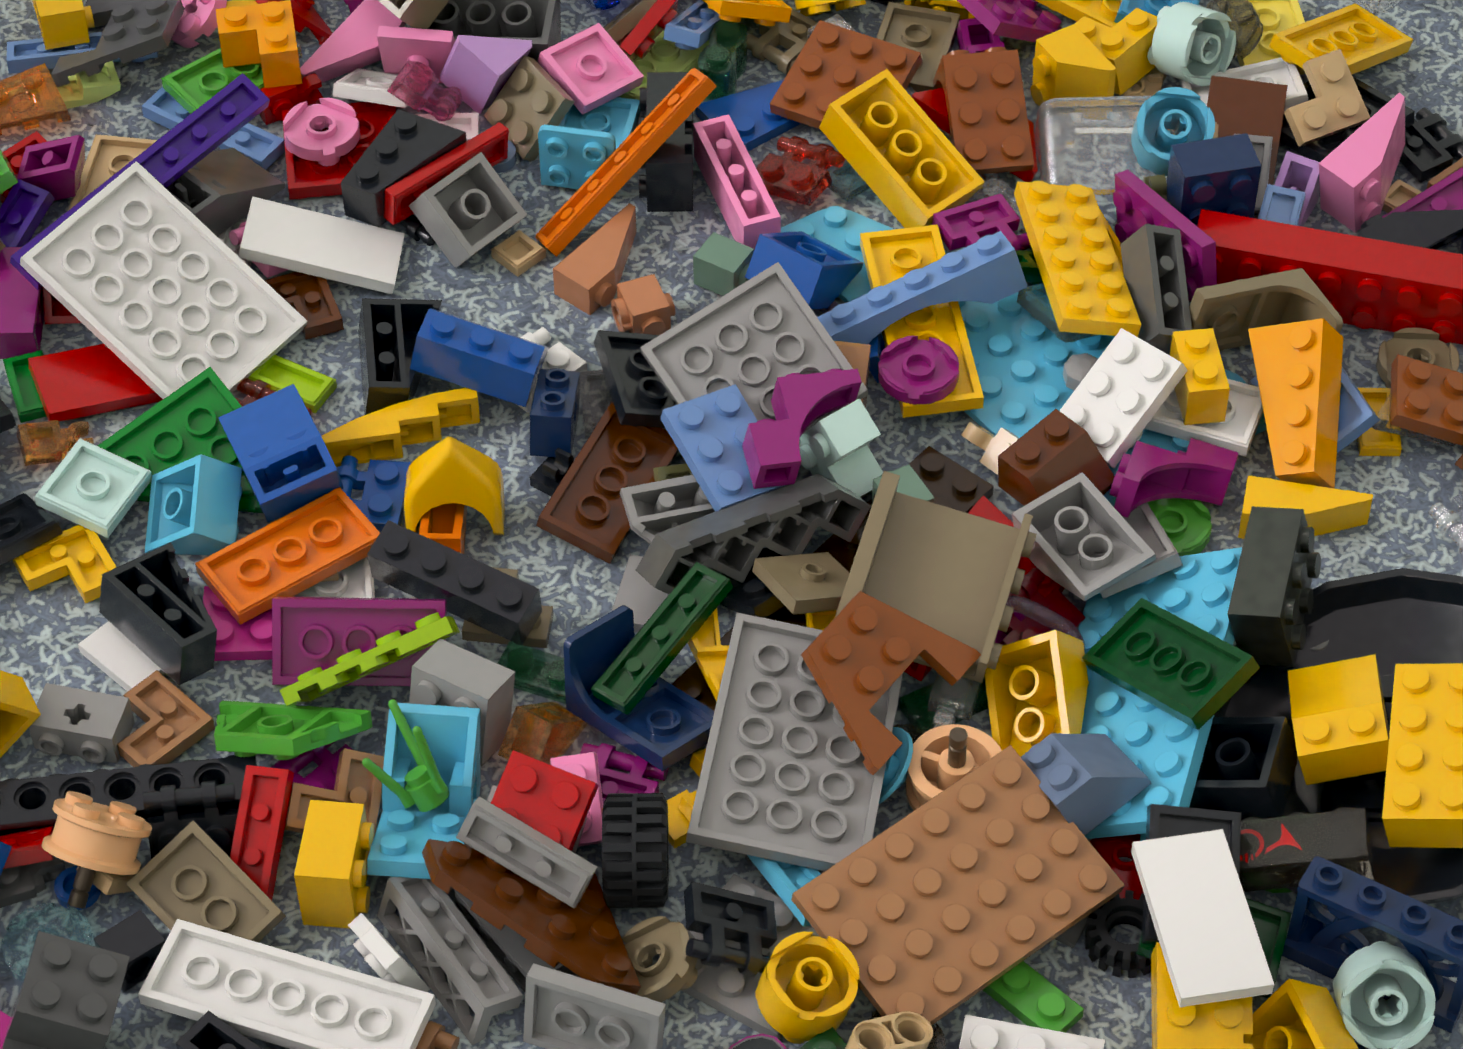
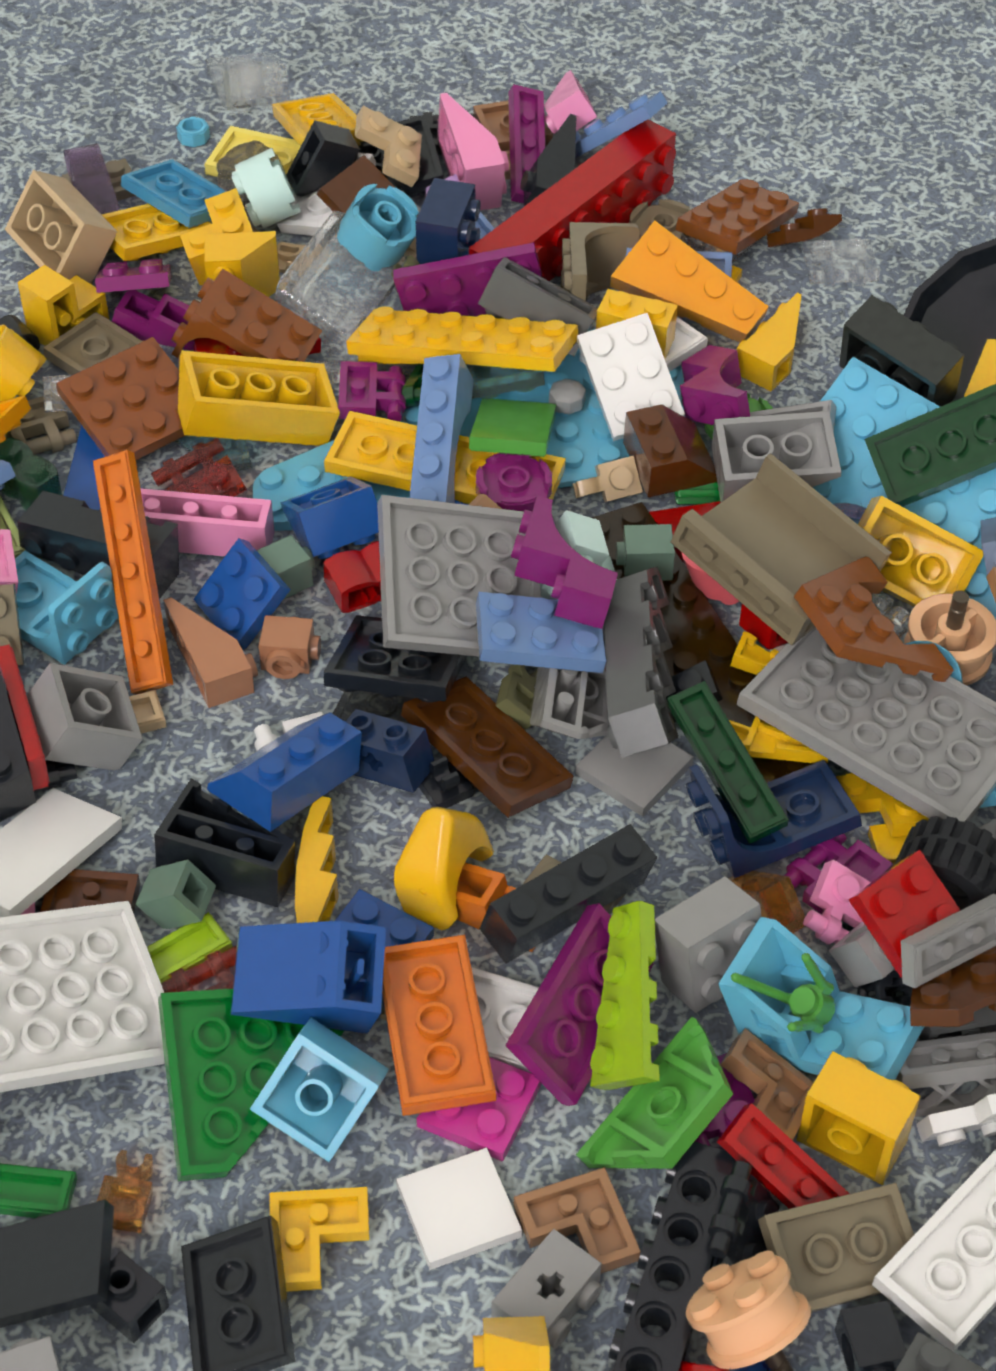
camera: 65 degrees left, 0 degrees up
(87, 383) = (63, 1132): red tile -> none
(93, 488) = (236, 1168): light aqua tile -> none
(160, 613) = (465, 1157): black wedge -> none
(332, 346) = (176, 894): none -> sand green brick
(536, 671) = (677, 880): clear green plate -> none
(675, 247) = (241, 593): none -> blue plate
(804, 580) = (713, 641): dark tan plate -> none
(993, 342) = (512, 427): none -> bright green tile
(1268, 59) = (321, 157): none -> black slope

